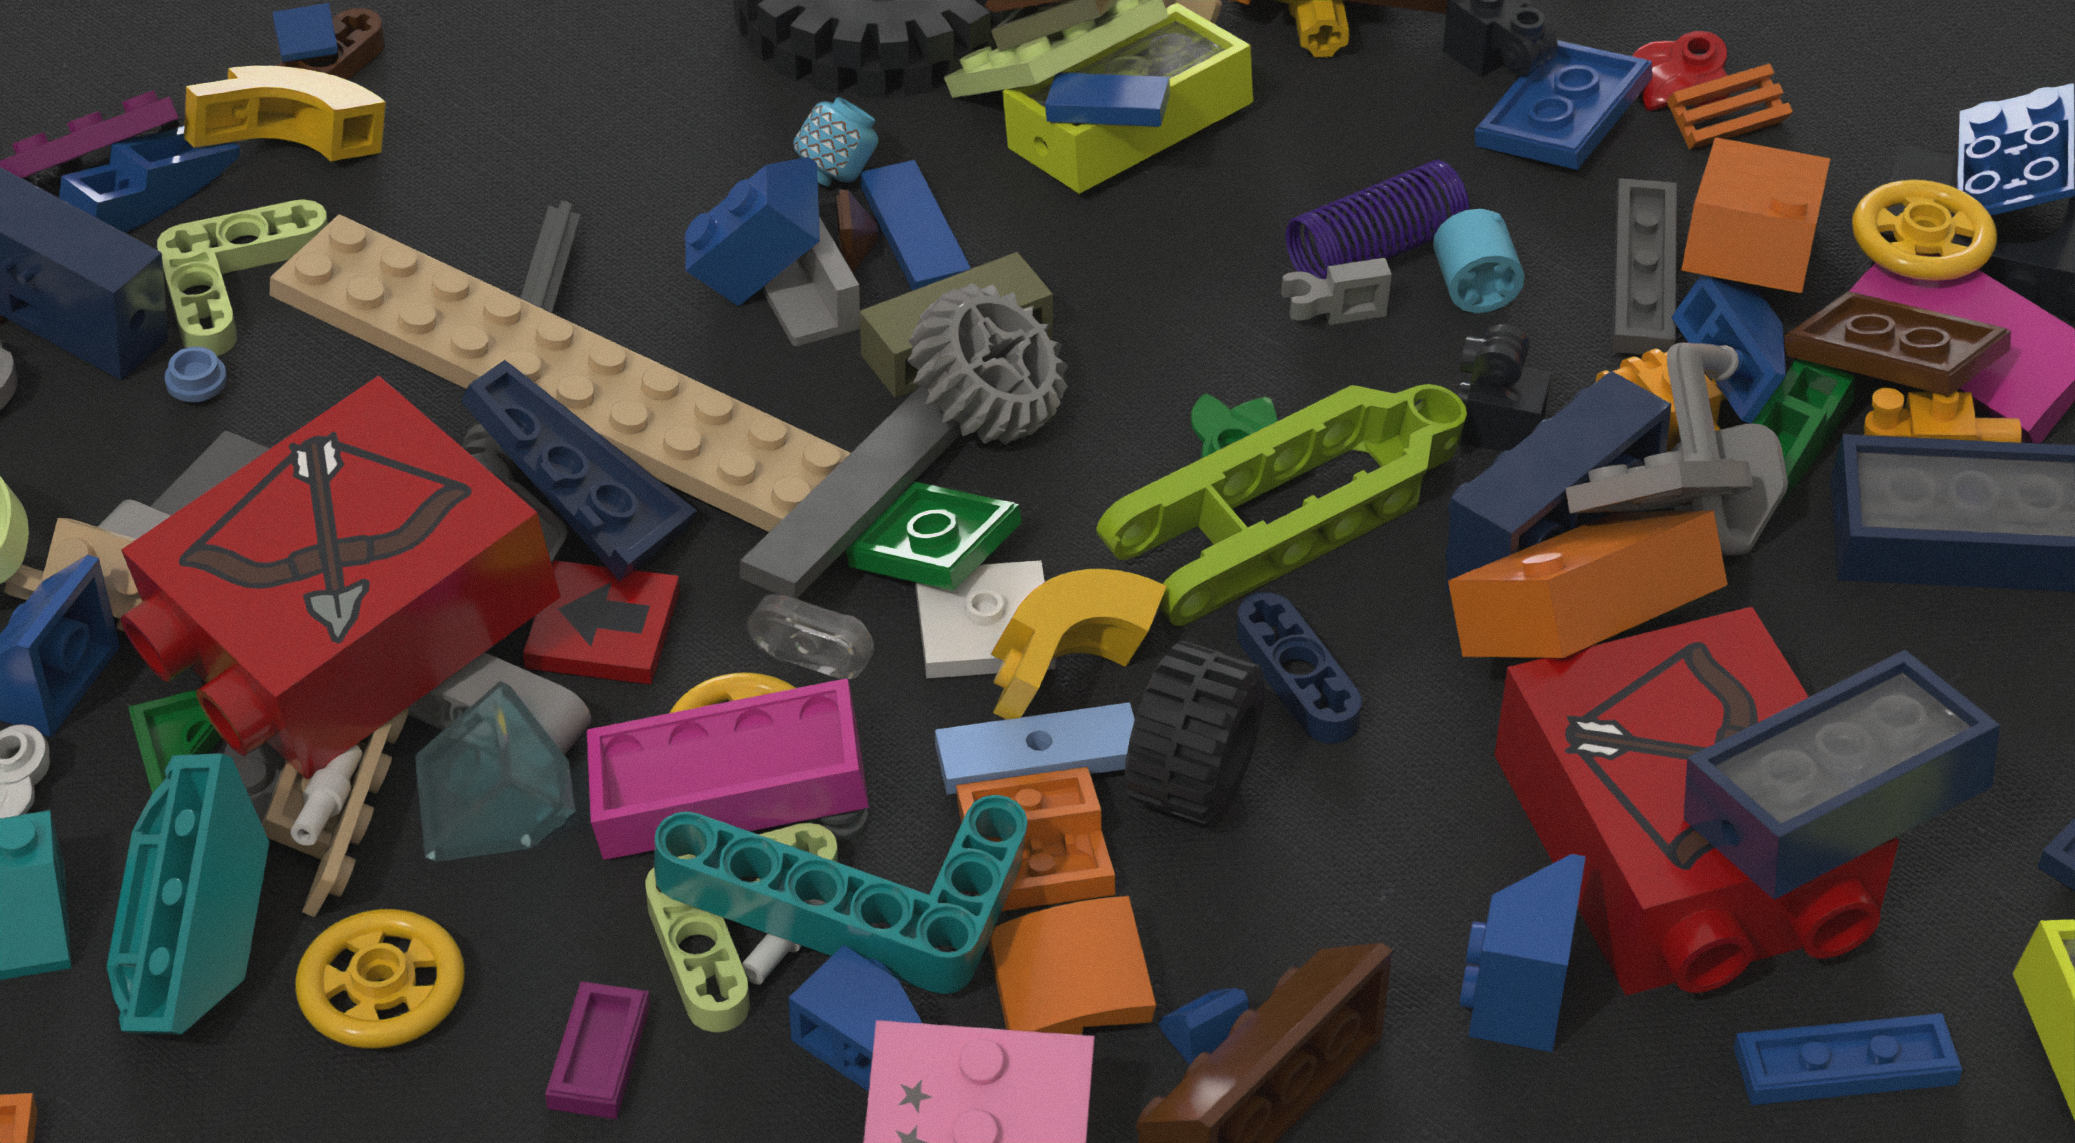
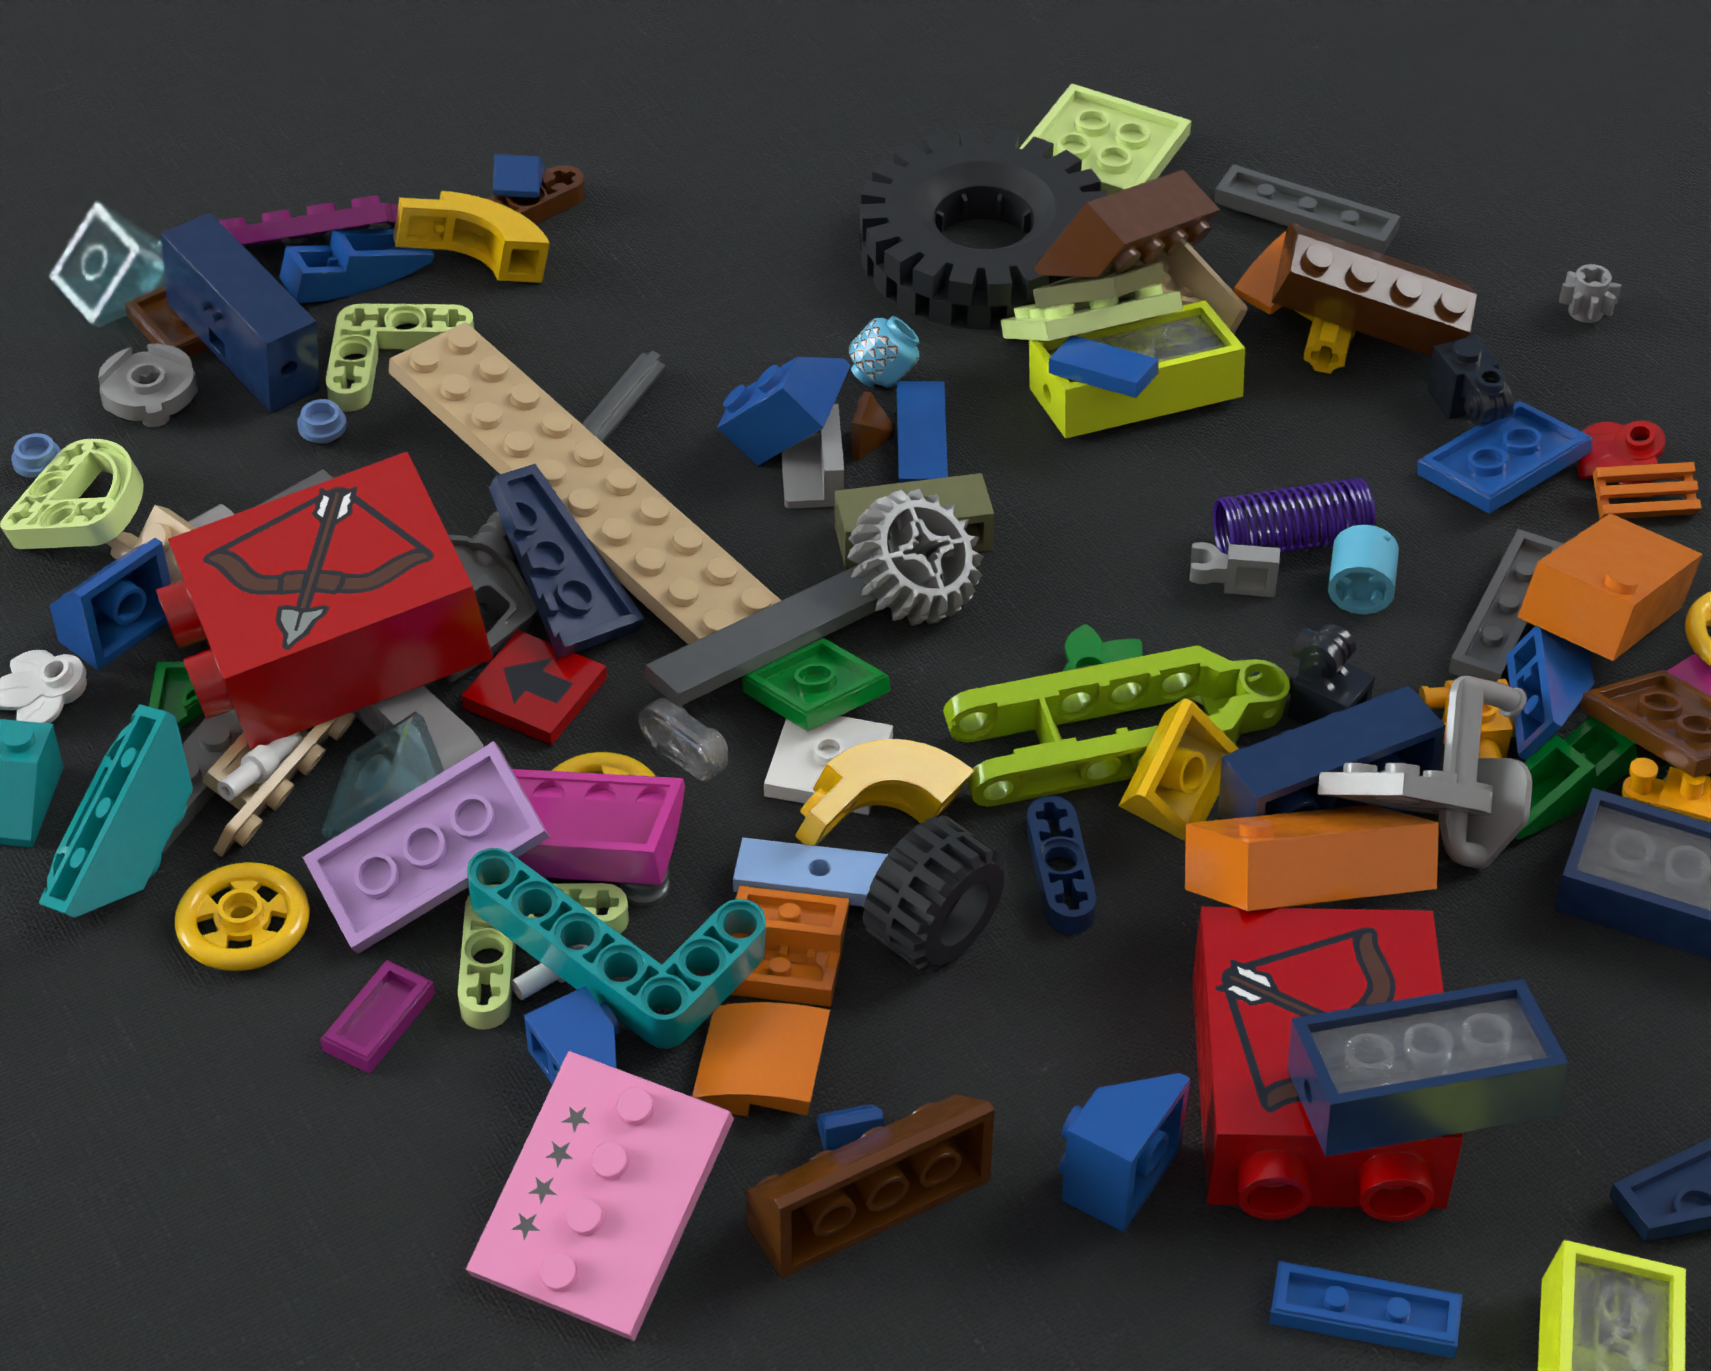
camera: 20 degrees right, 0 degrees up
(578, 836) = (421, 847): none -> lavender plate
(1390, 528) = (1179, 770): none -> yellow slope

